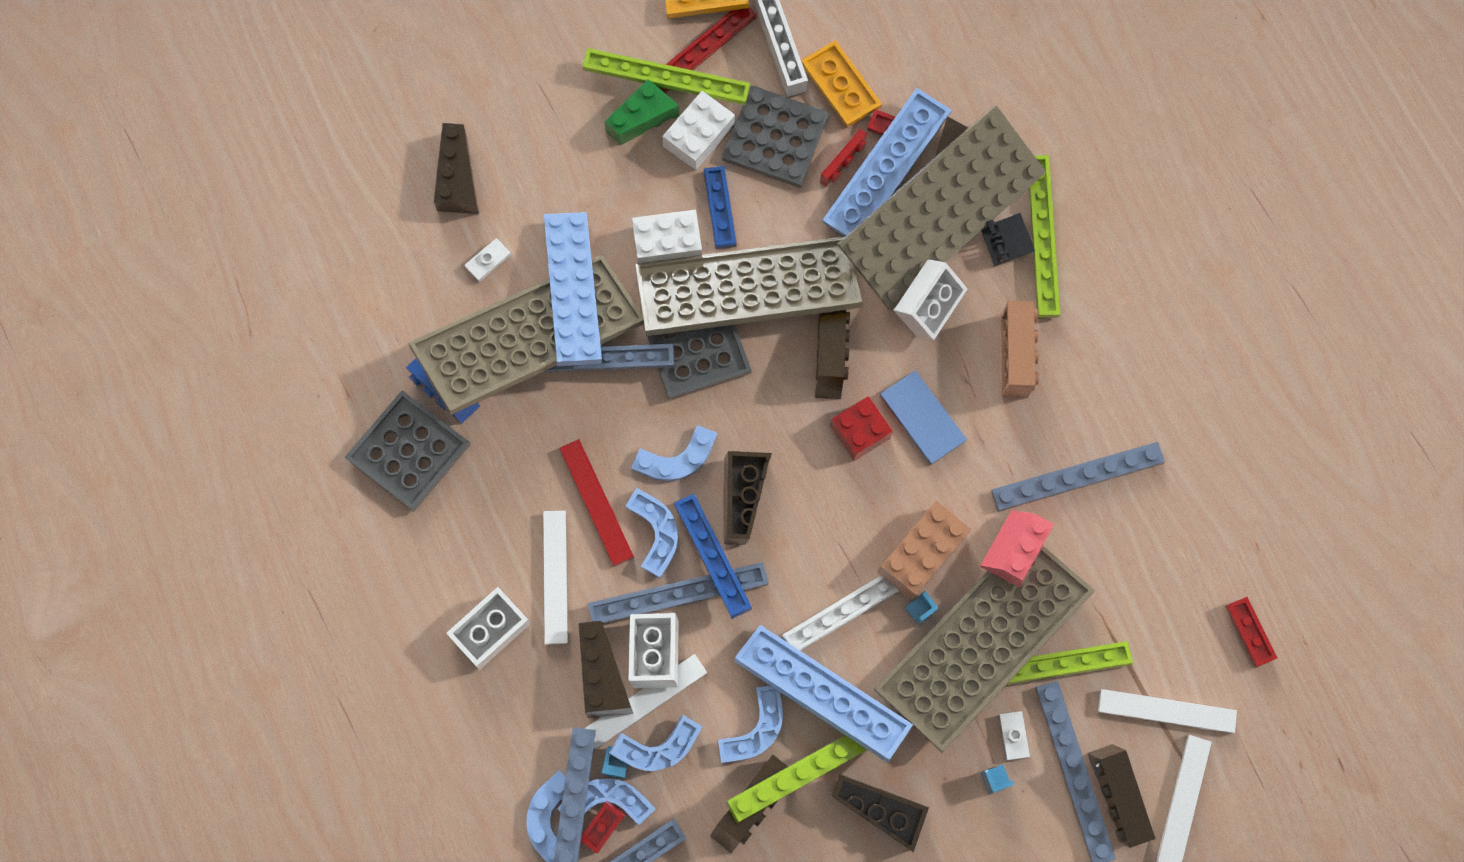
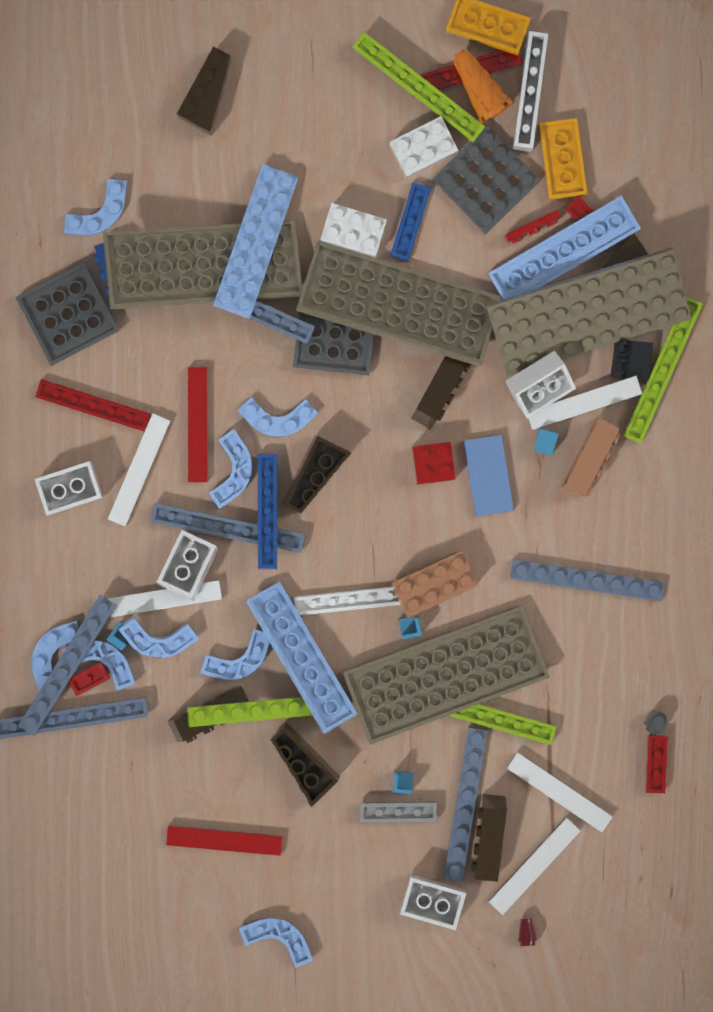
camera: 30 degrees right, 15 degrees up
(398, 347) = (105, 217): none -> light blue plate
(475, 533) = (92, 405): none -> red tile
(487, 260) = (200, 180): white plate -> none
(601, 677) = (138, 567): dark brown wedge -> none
(640, 112) = (382, 109): green wedge -> none
(733, 52) = (484, 93): none -> orange cone
(964, 354) = (545, 441): none -> dark azure panel
(983, 300) = (586, 402): none -> white tile
(1008, 815) = (398, 812): none -> light grey plate
(1014, 735) = (433, 755): white plate -> none
(1017, 546) = (507, 615): coral slope -> none
(1227, 588) = (656, 722): none -> dark grey plate

